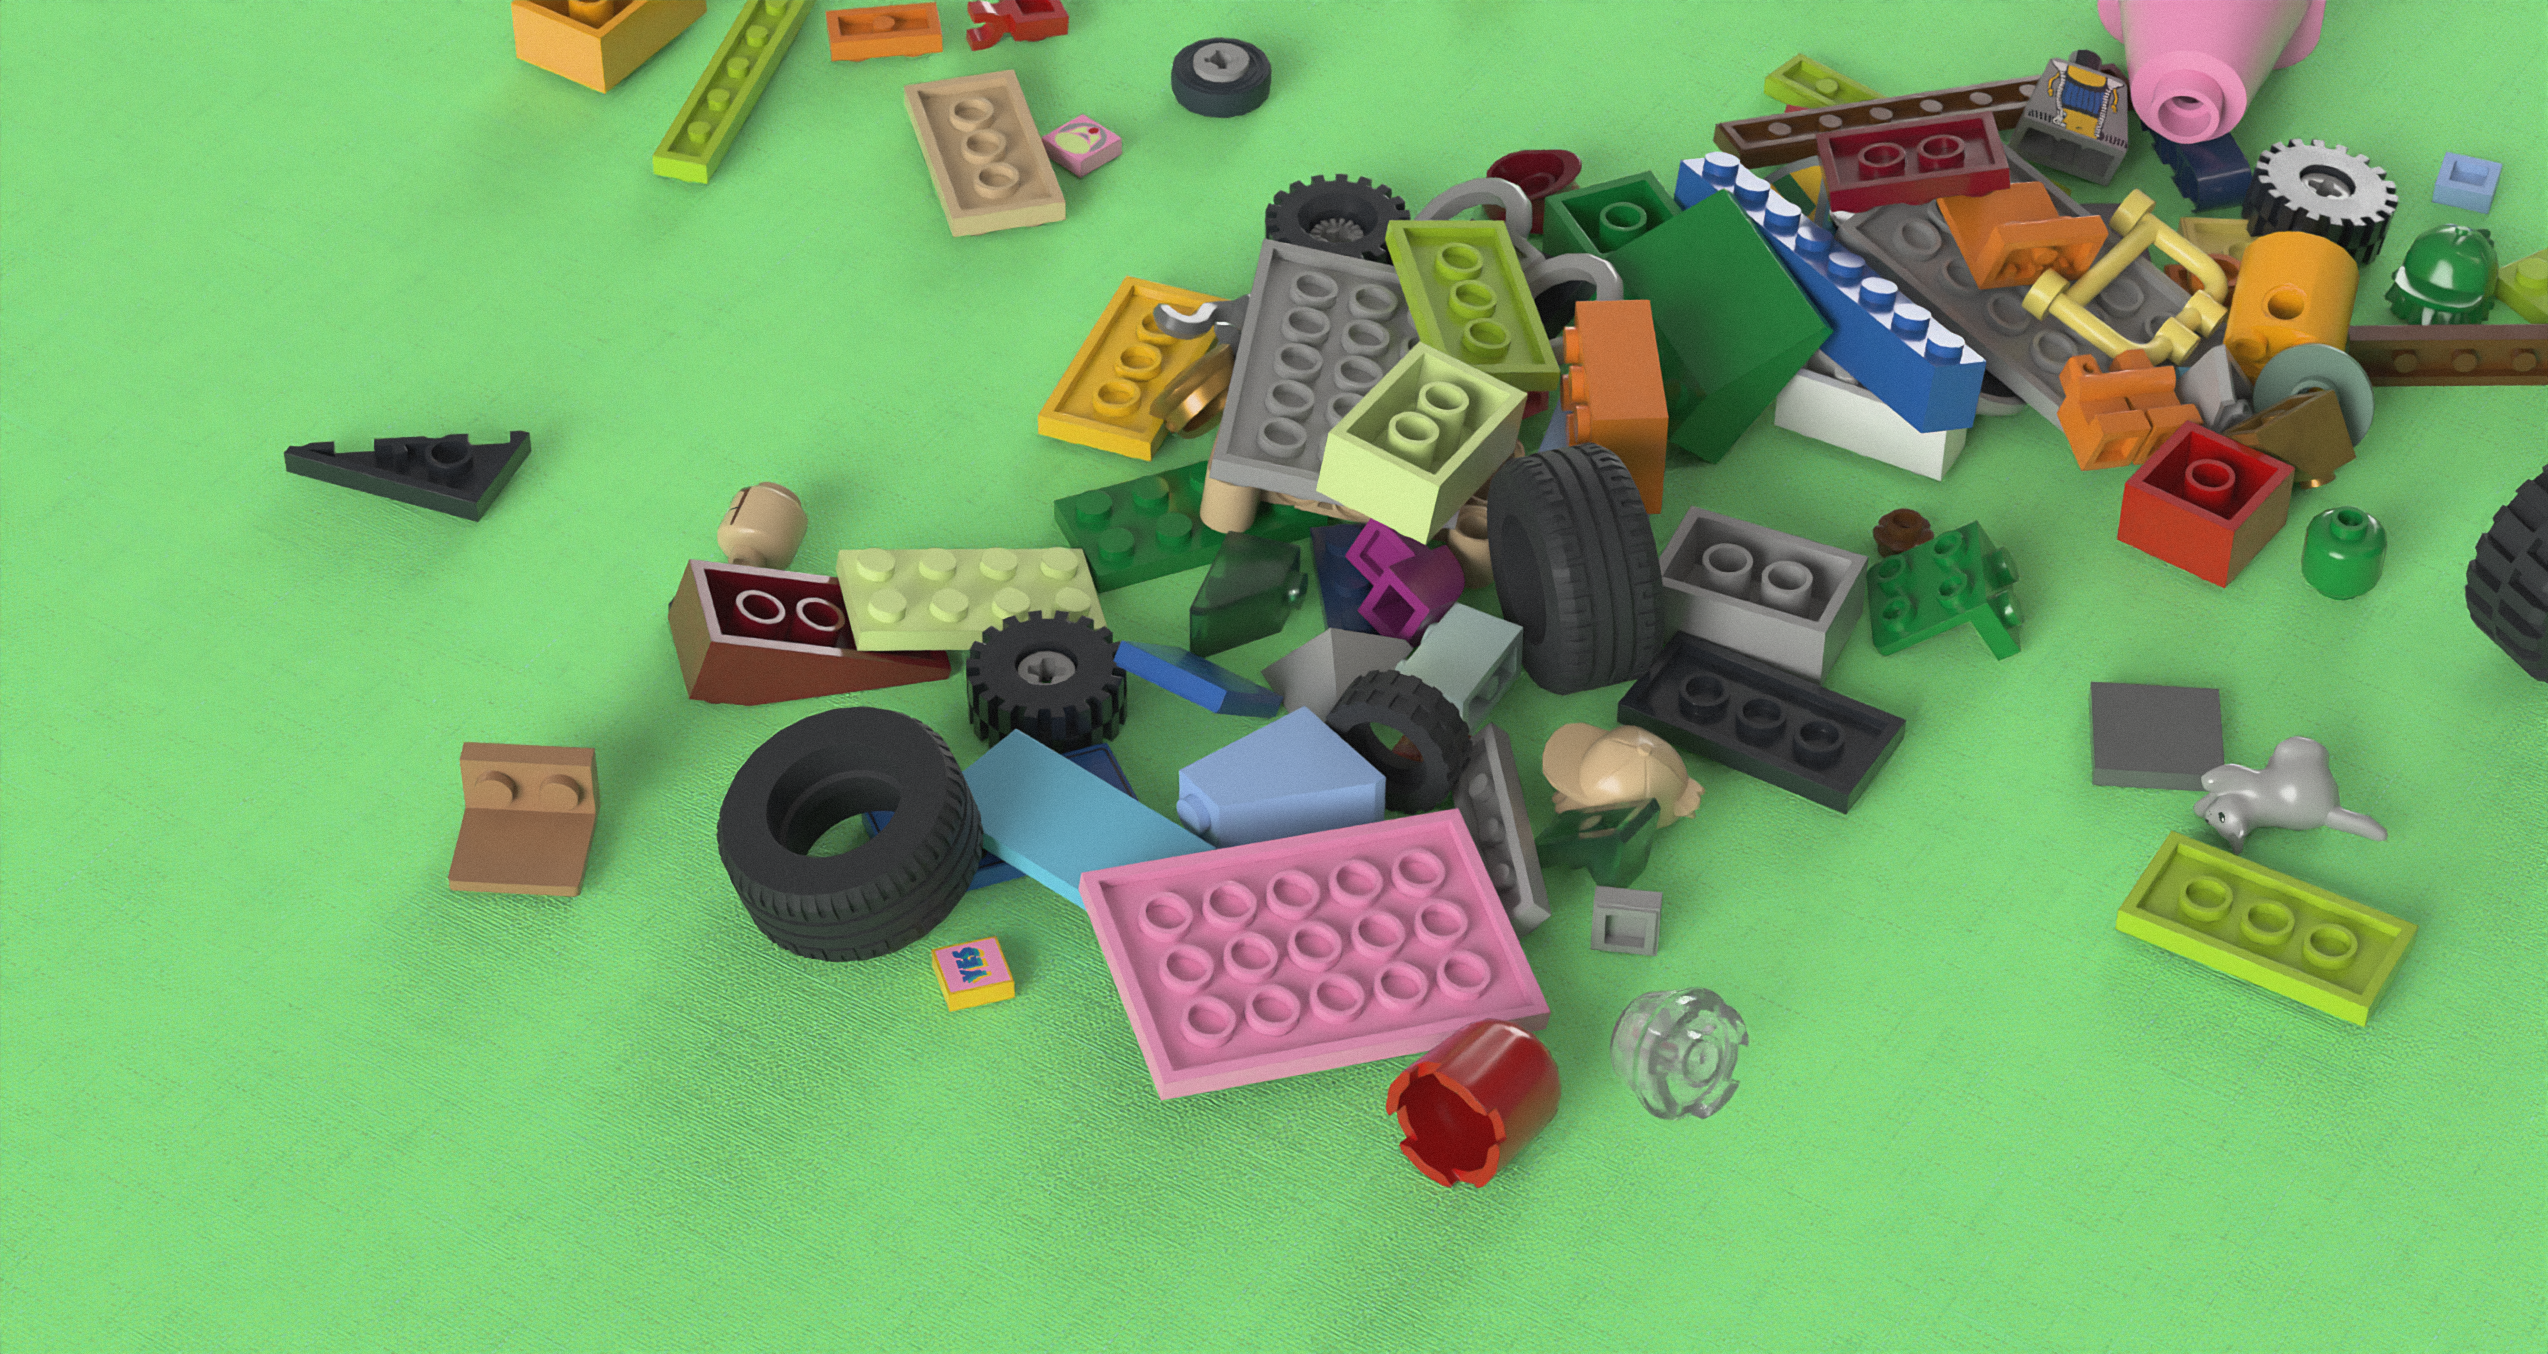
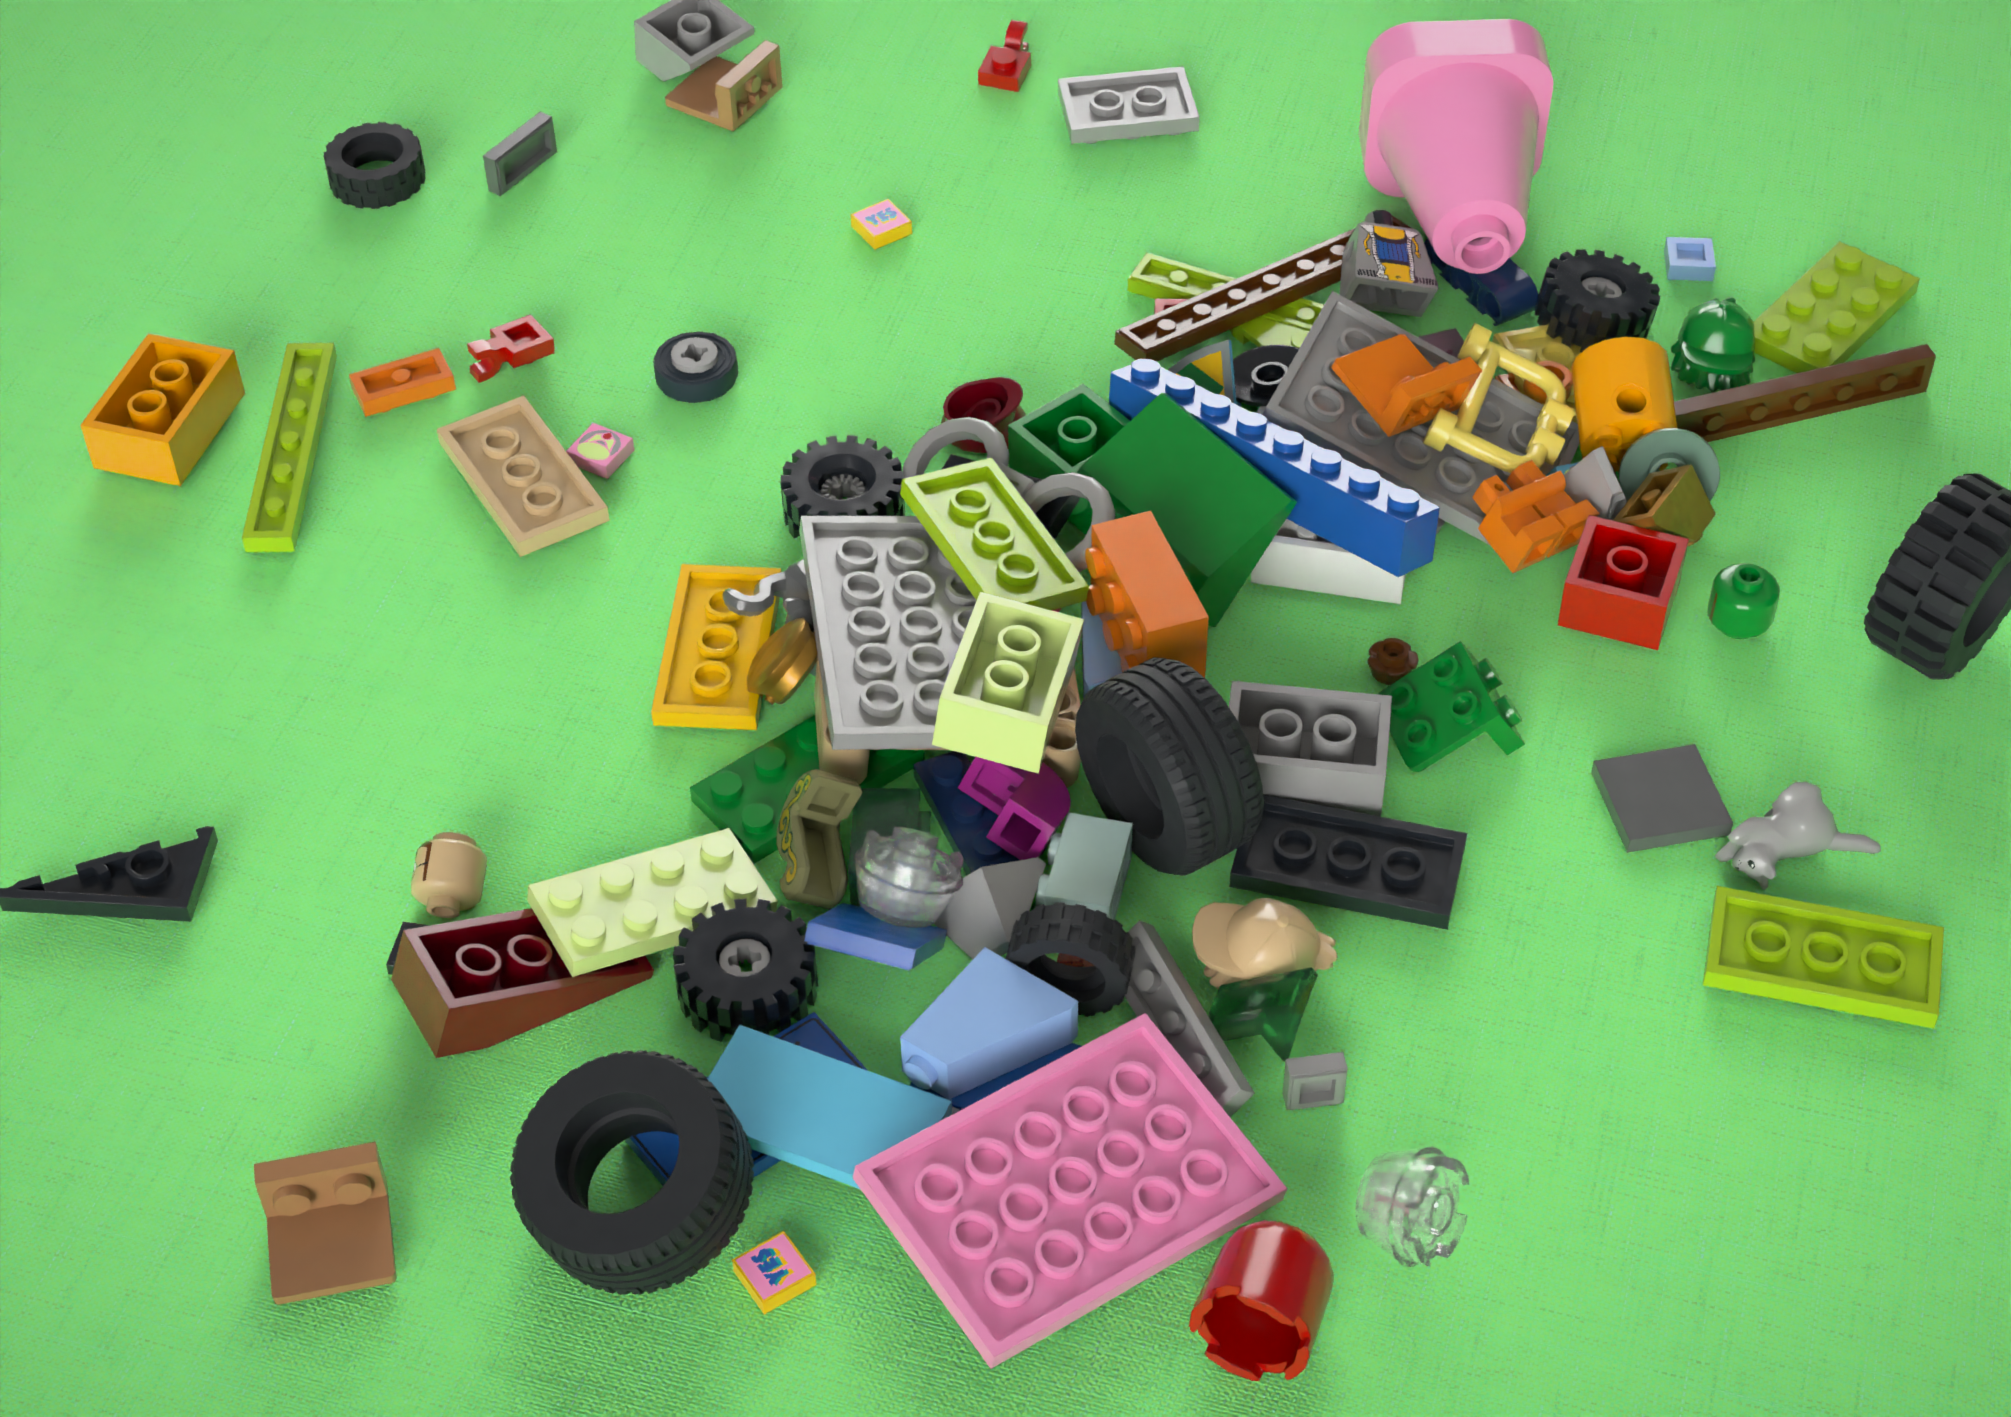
camera: 15 degrees left, 5 degrees up
(1168, 569) = (811, 838): none -> olive animal
(1247, 625) = (906, 877): none -> clear cone
(1912, 162) = (1306, 340): dark red plate -> none

